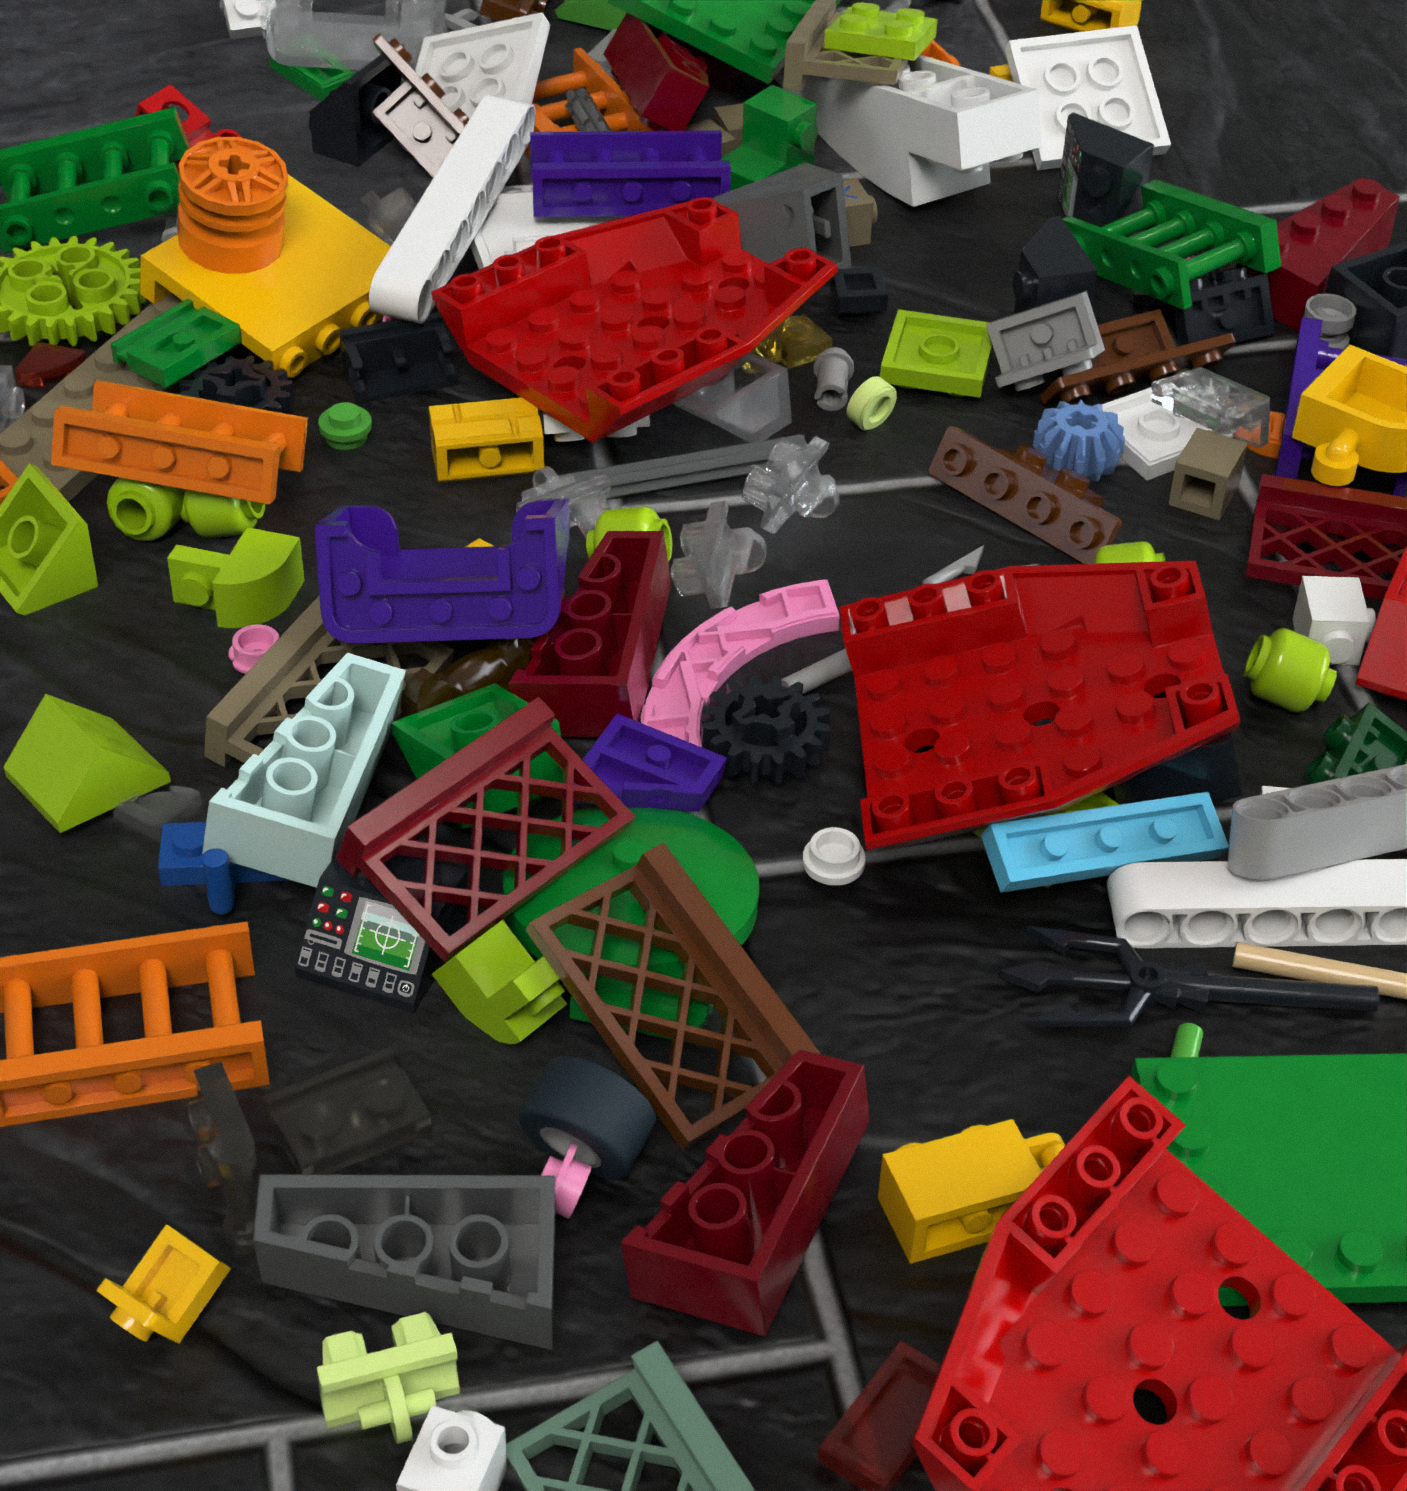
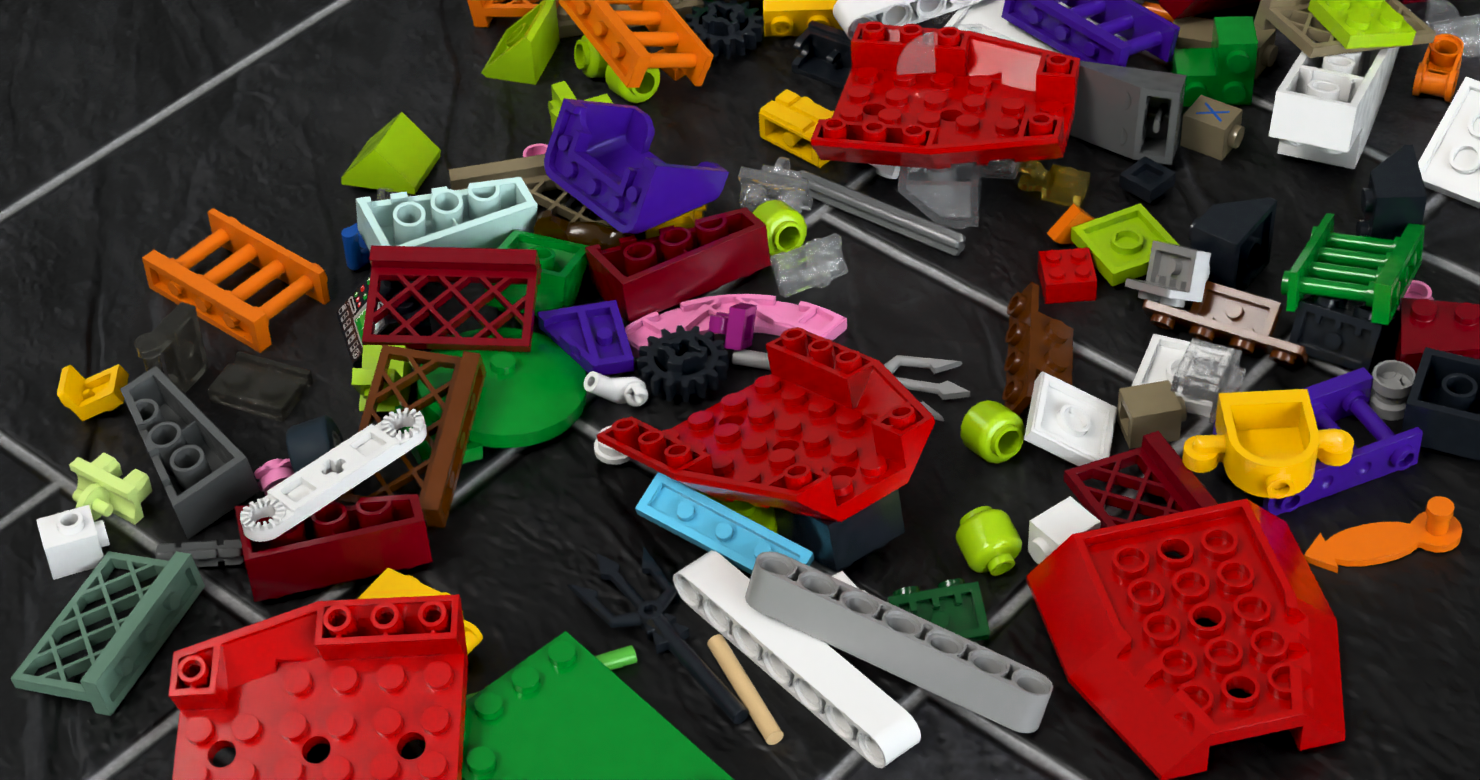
camera: 55 degrees right, 0 degrees up
(345, 426) = (758, 77): bright green plate -> none
(549, 283) = (917, 56): none -> clear tile
(614, 1344) = (205, 552): none -> dark grey axle
(703, 1140) = (333, 475): none -> white piece
(746, 797) = (618, 390): none -> white arm
(762, 652) = (736, 324): none -> magenta tile
(791, 484) = (912, 258): clear hips -> none
(833, 371) = (1041, 218): light grey pin -> none
(870, 360) = (1061, 230): none -> orange tile
(871, 403) = (1030, 241): yellowish green tile -> none
(932, 407) = (1067, 275): none -> red piece
(1080, 439) = (1108, 345): medium blue gear -> none
(1174, 524) = (1069, 421): none -> white tile

